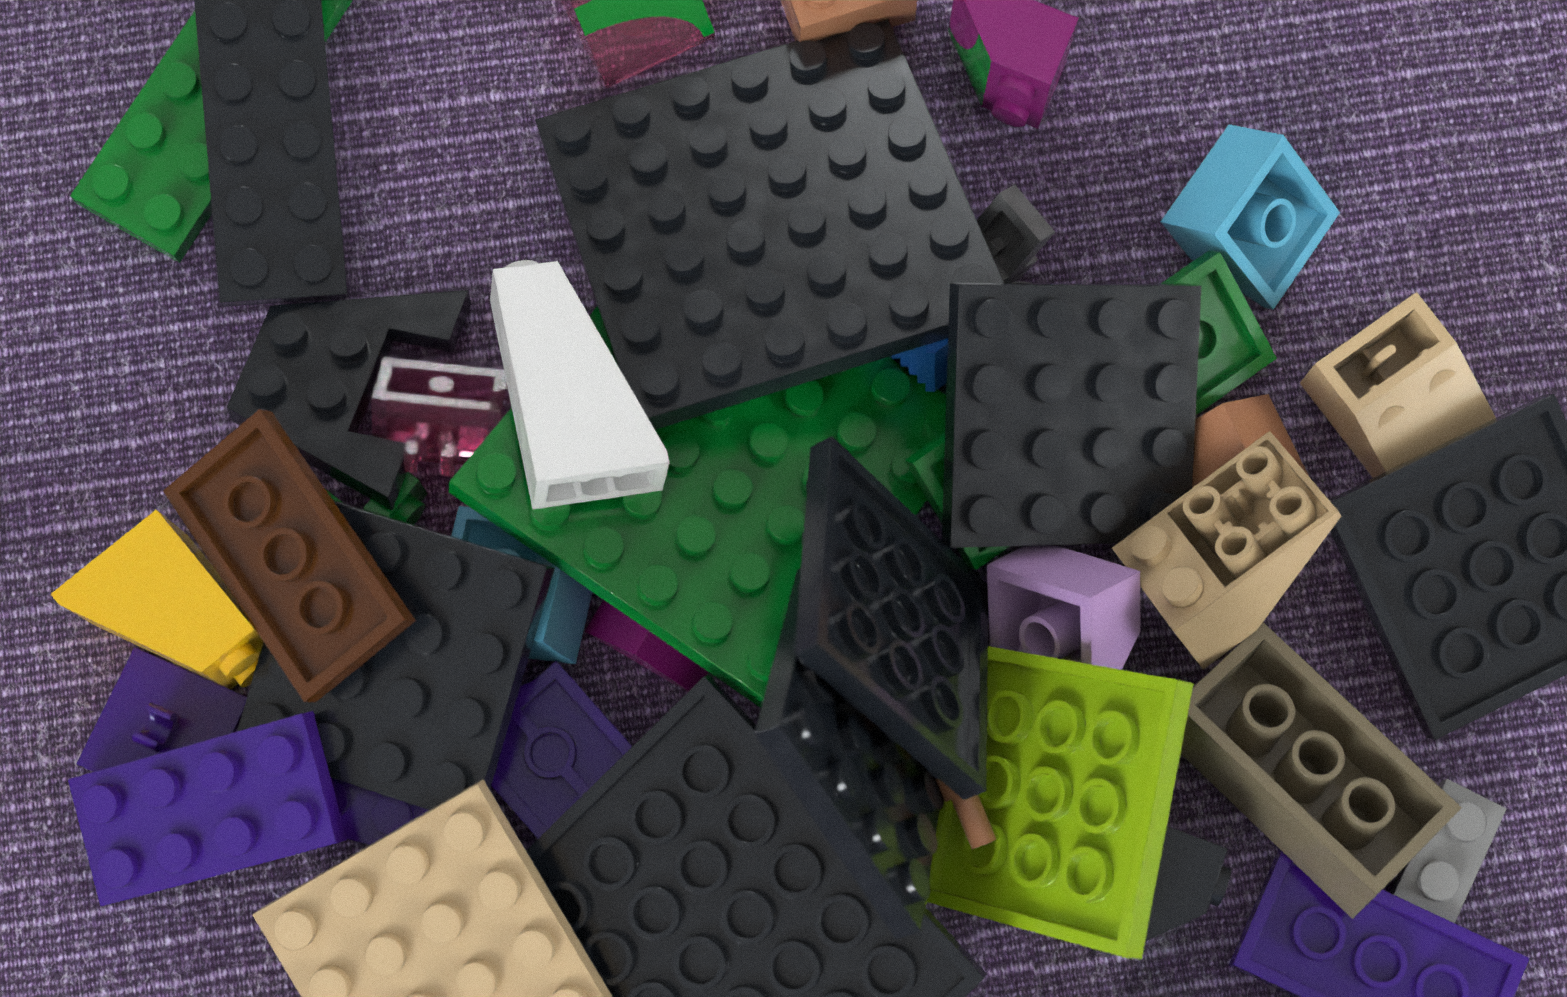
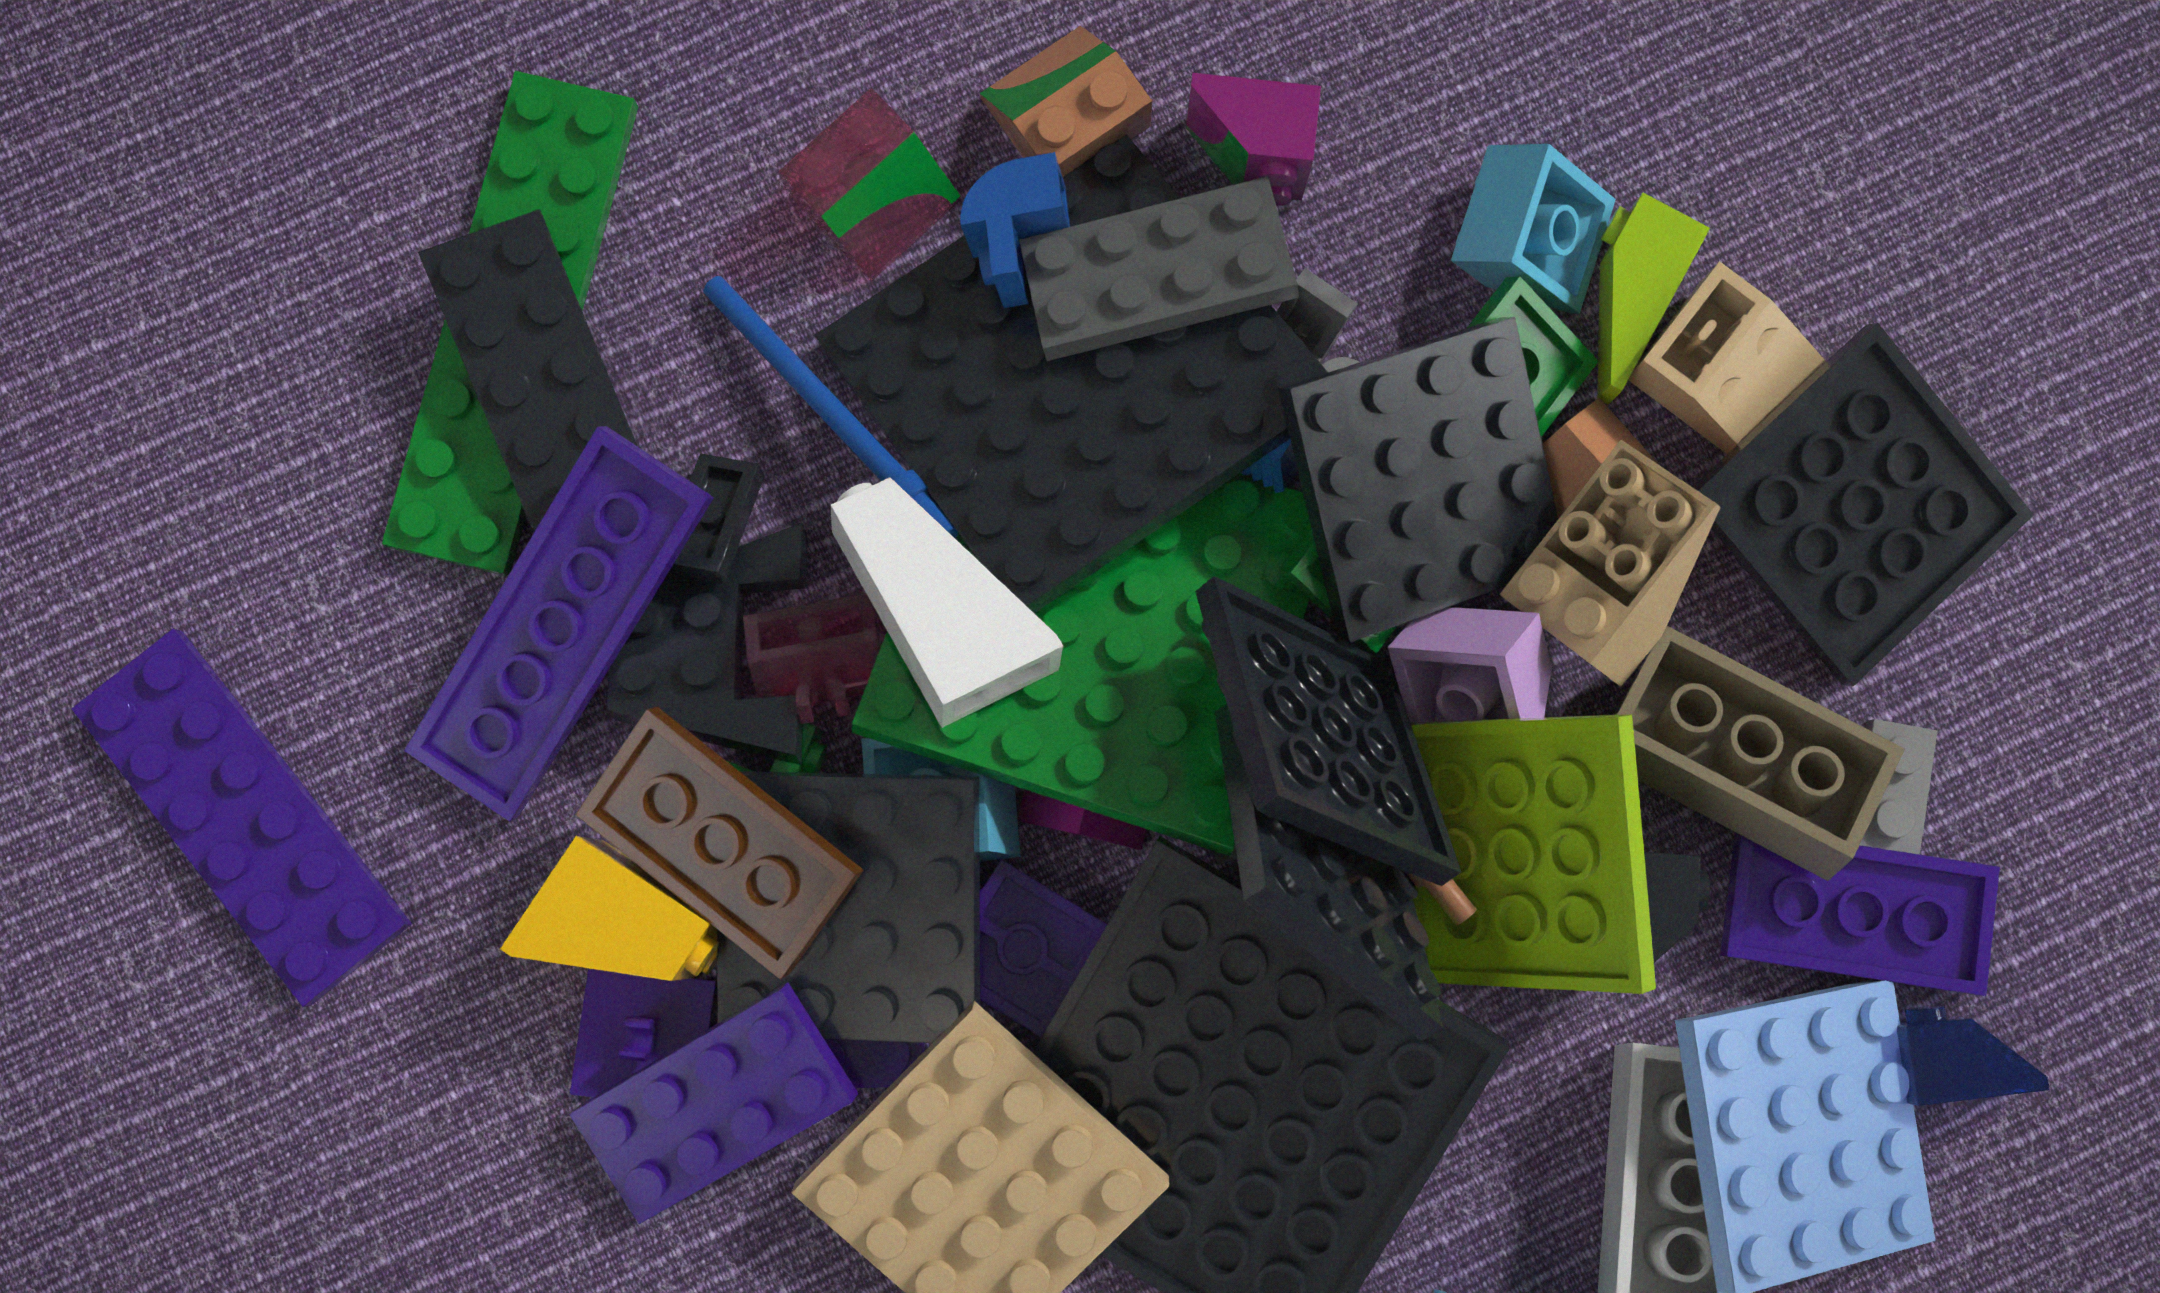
camera: 15 degrees left, 5 degrees up
(207, 312) = (558, 622): none -> dark purple plate
(384, 260) = (721, 528): none -> black plate
(521, 177) = (820, 397): none -> blue bar
(752, 54) = (1011, 205): none -> blue brick
(874, 145) = (1158, 268): none -> dark grey plate
(1342, 285) = (1638, 279): none -> lime slope

